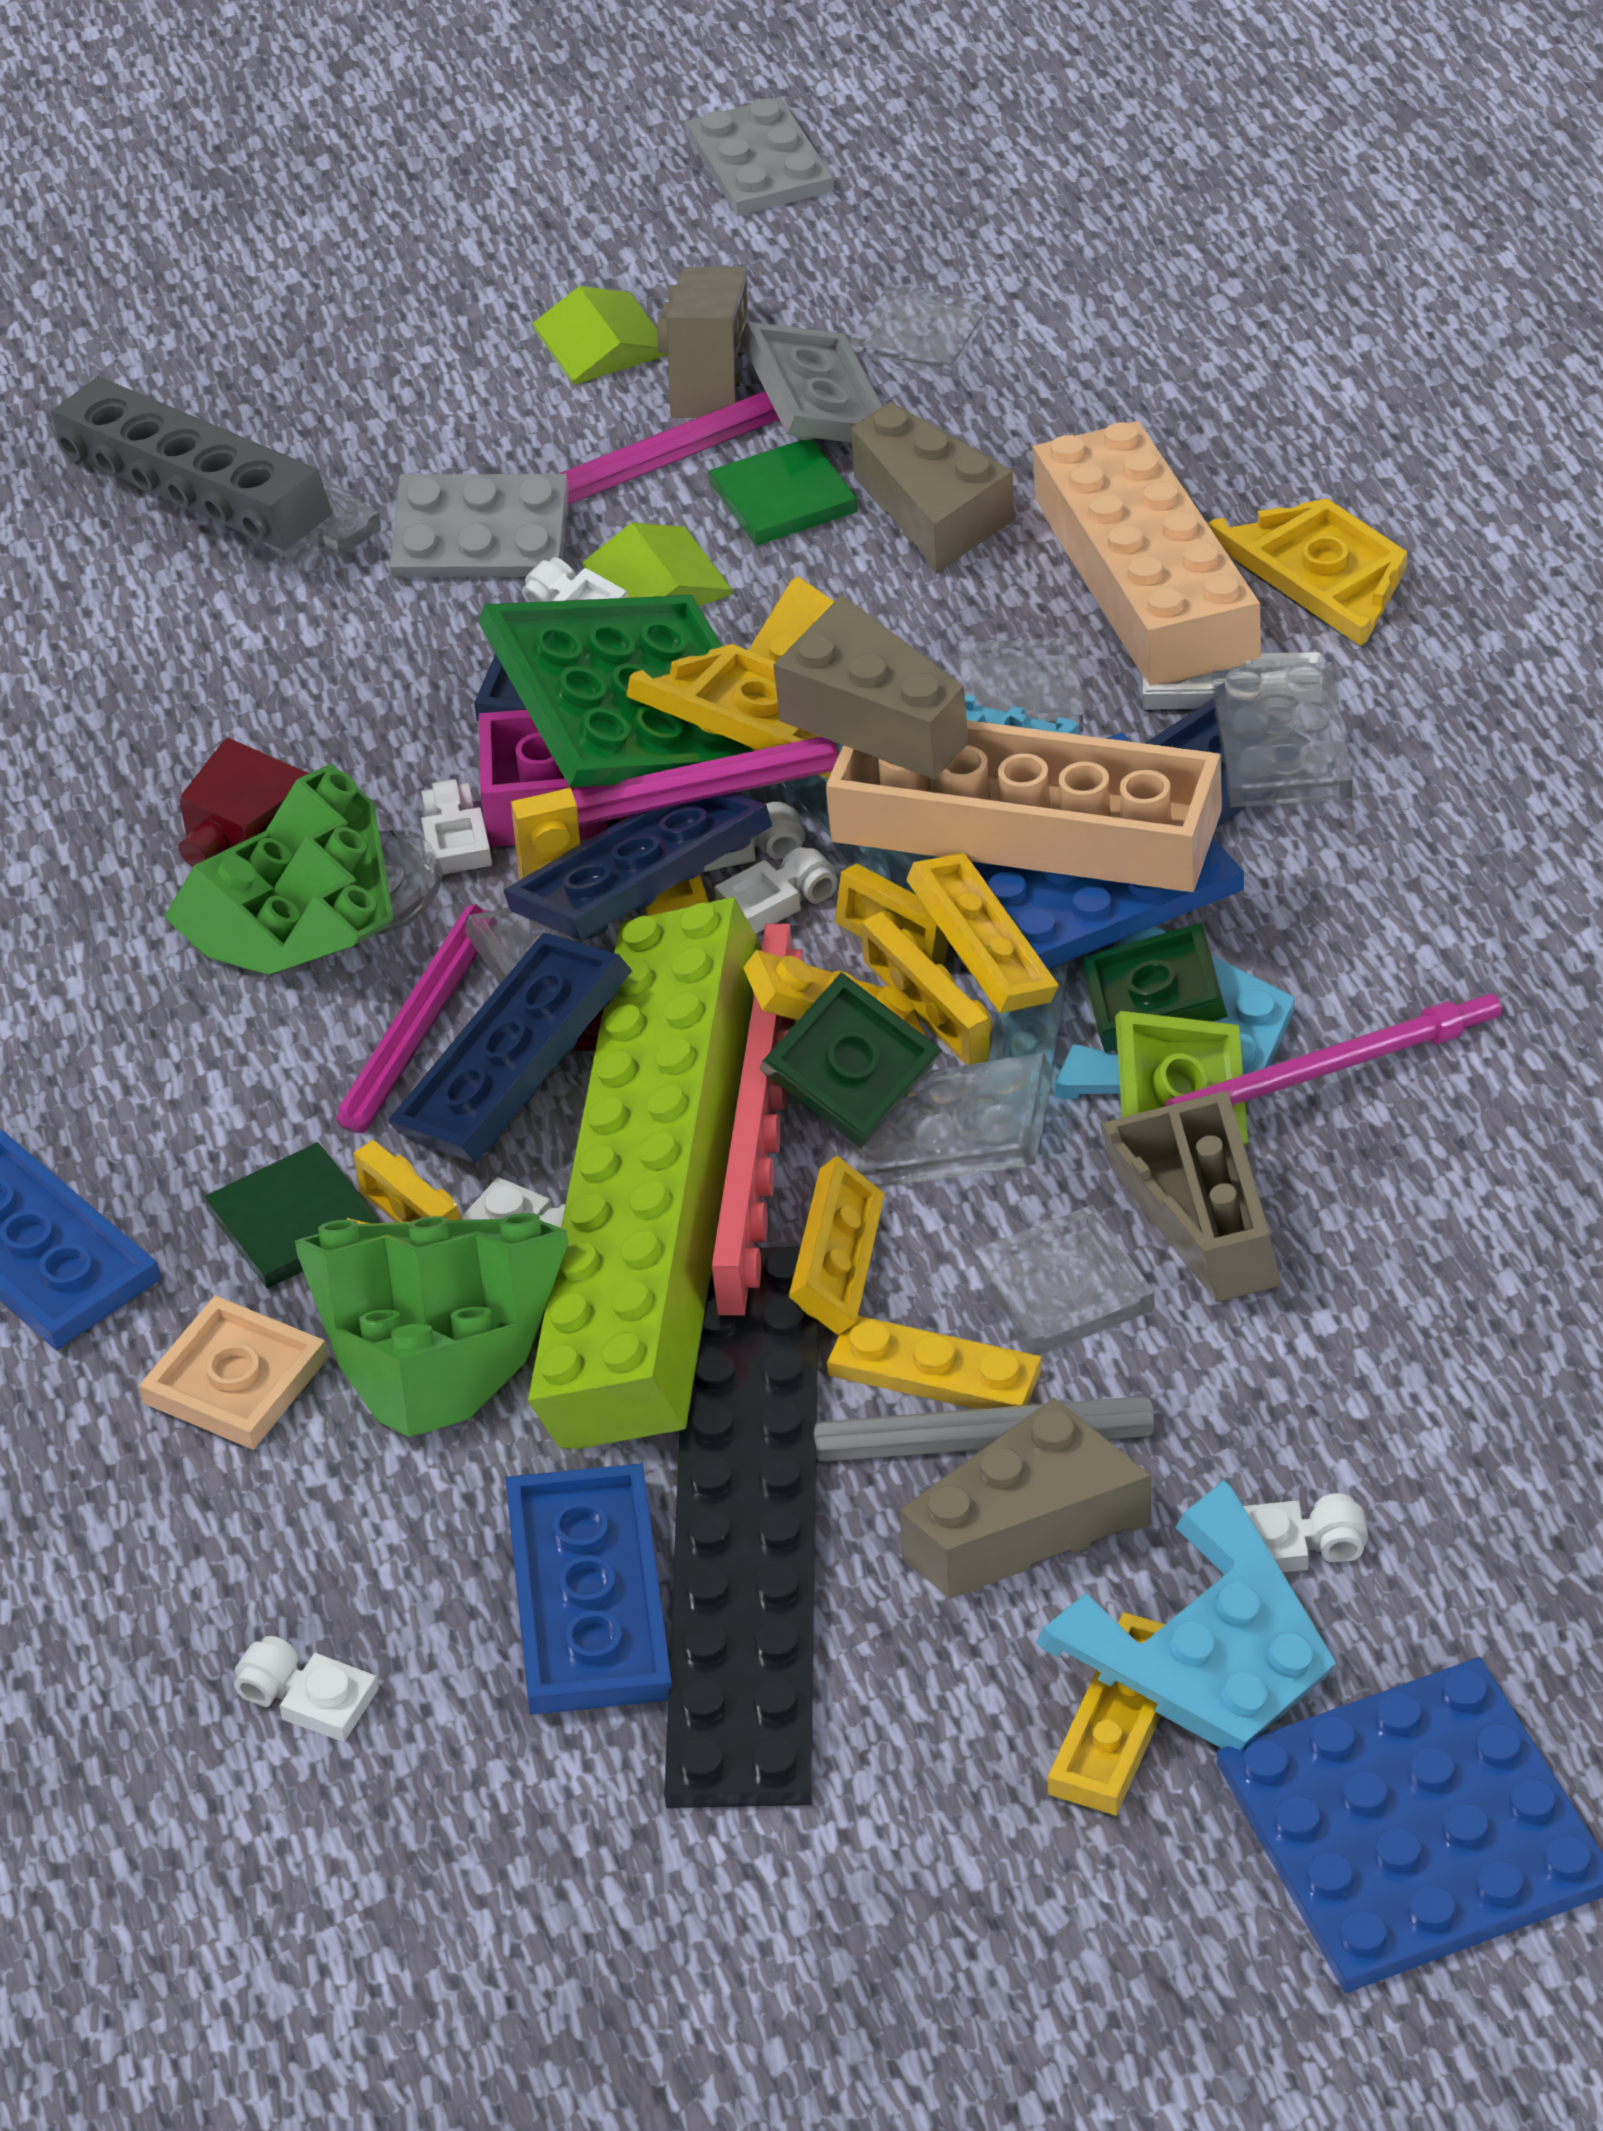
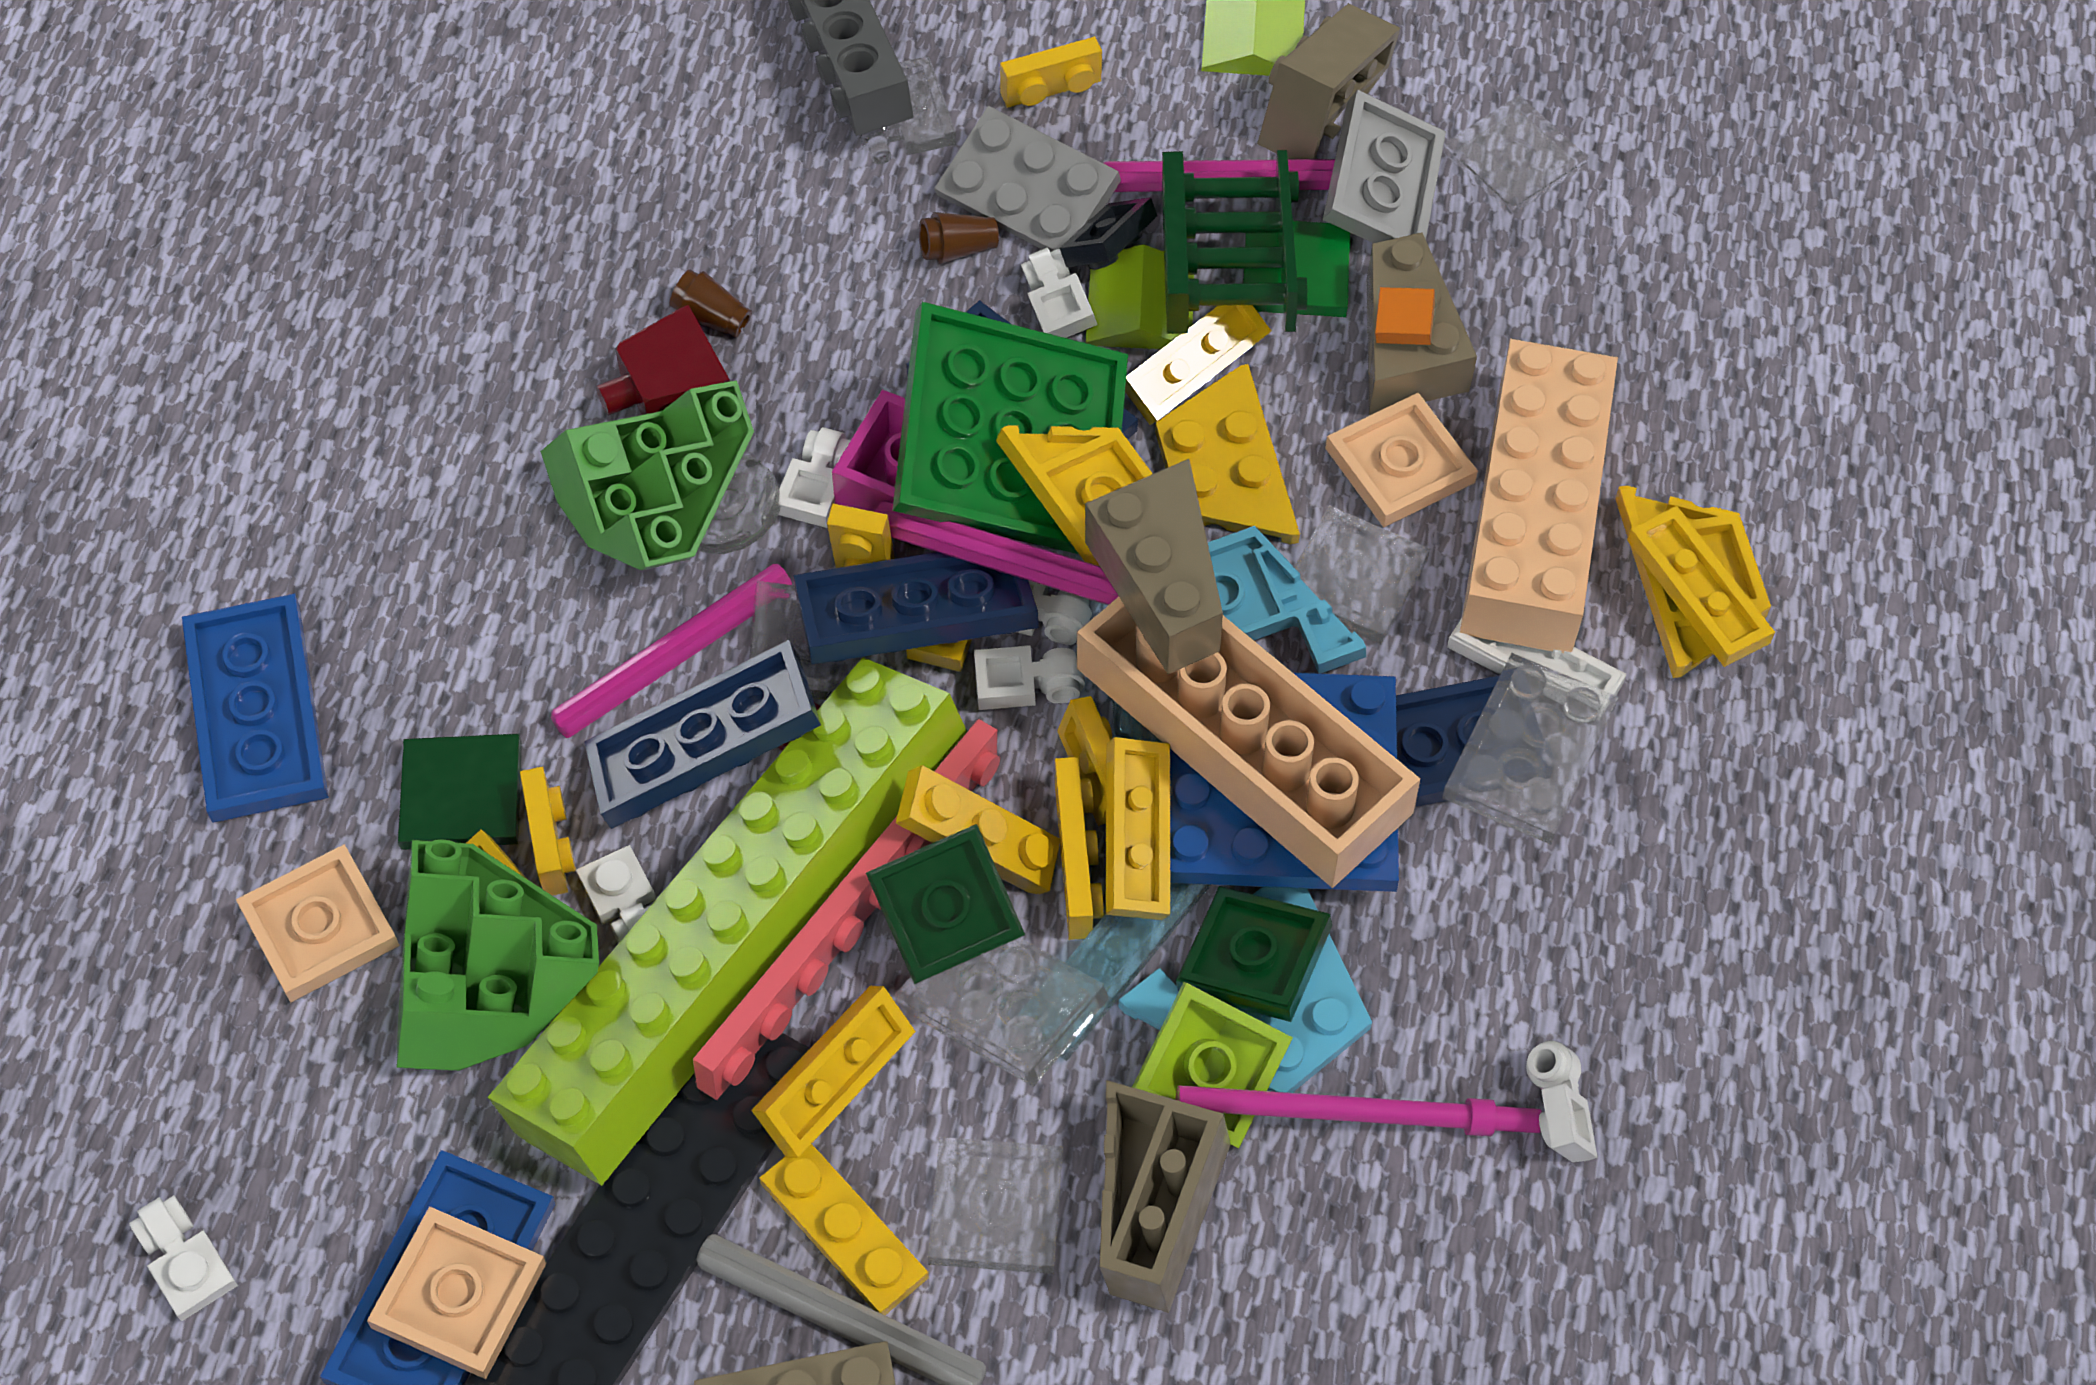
camera: 25 degrees right, 15 degrees up
(243, 730) = (710, 303): none -> reddish brown cone
(435, 432) = (1051, 72): none -> yellow plate
(440, 593) = (956, 236): none -> reddish brown cone
(592, 527) = (1108, 233): none -> black plate
(616, 1561) = (457, 1292): none -> light nougat plate
(688, 514) = (1185, 258): none -> dark green fence
(748, 582) = (1193, 358): none -> plate
(928, 460) = (1405, 316): none -> orange tile
(994, 587) = (1401, 459): none -> light nougat plate
(1338, 555) = (1700, 586): none -> yellow plate
(1519, 990) = (1566, 1116): none -> white plate

